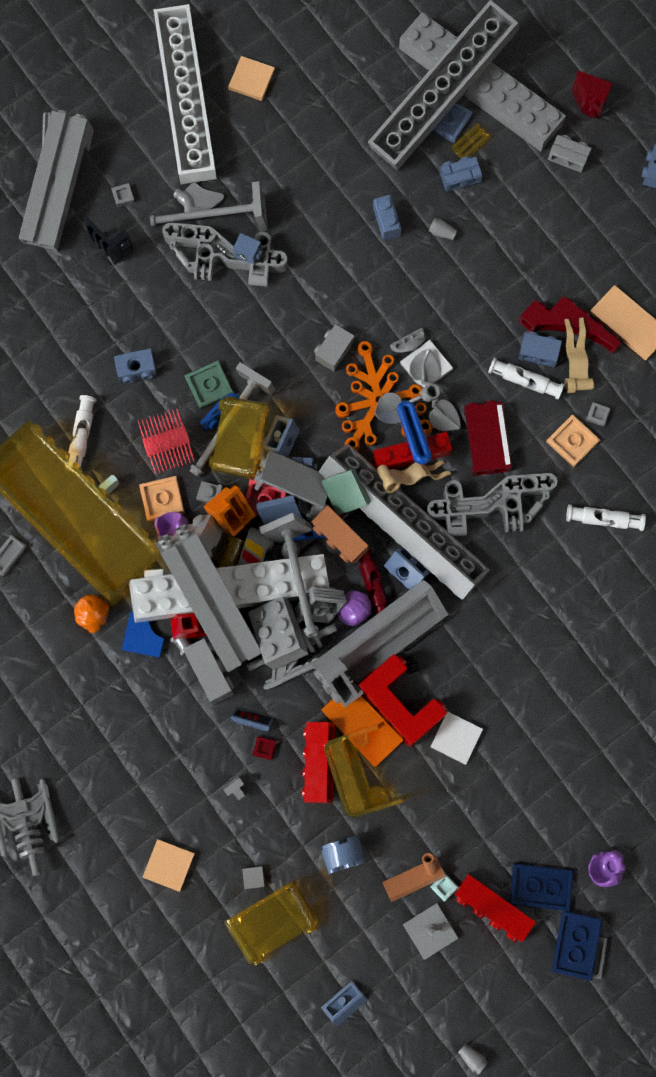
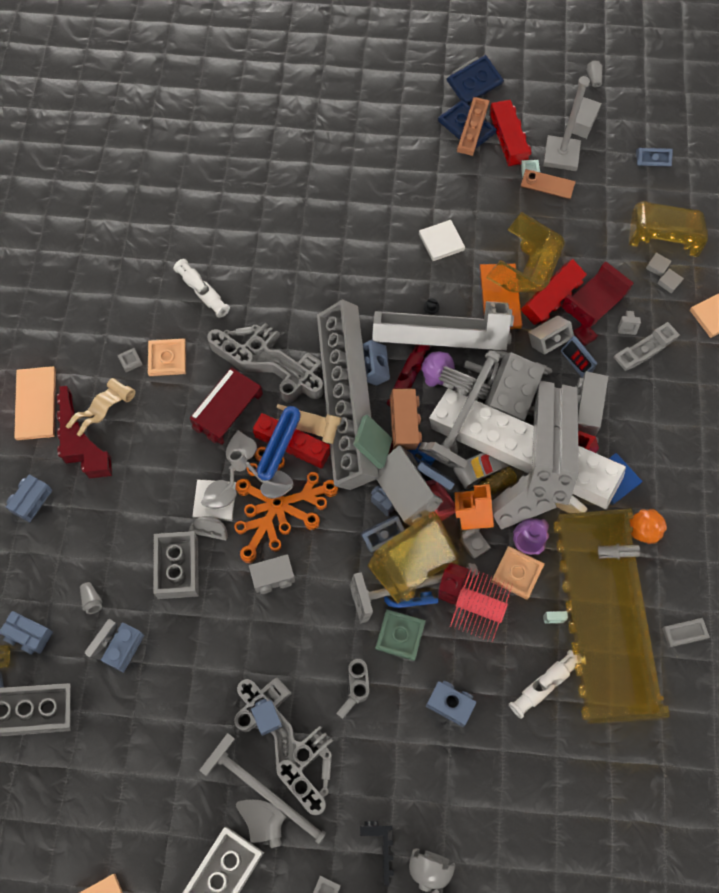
camera: 140 degrees left, 10 degrees down
(67, 256) = (430, 870): none -> light grey cylinder
(98, 567) = (618, 551): none -> light grey axle
(200, 442) = (452, 582): none -> dark red slope
(204, 776) = (647, 347): none -> light grey slope
(212, 327) = (355, 681): none -> light grey beam
(231, 868) = (670, 281): none -> light grey tile
(280, 790) = (598, 295): none -> dark red panel
(289, 717) = (551, 334): none -> light grey brick
(343, 854) = (586, 225): sand blue brick -> none
(376, 691) = (463, 260): red piece -> none
(404, 295) = (176, 565): none -> light grey brick
(405, 211) = (102, 639): none -> light grey plate
(441, 989) = (586, 117): none -> light grey brick
(521, 376) = (152, 423): white piece -> none
(532, 885) = (473, 126): none -> nougat tile
(539, 349) = (121, 437): sand blue brick -> none
(555, 253) = (28, 498): none -> sand blue brick
(607, 868) = (417, 98): medium lavender hair -> none

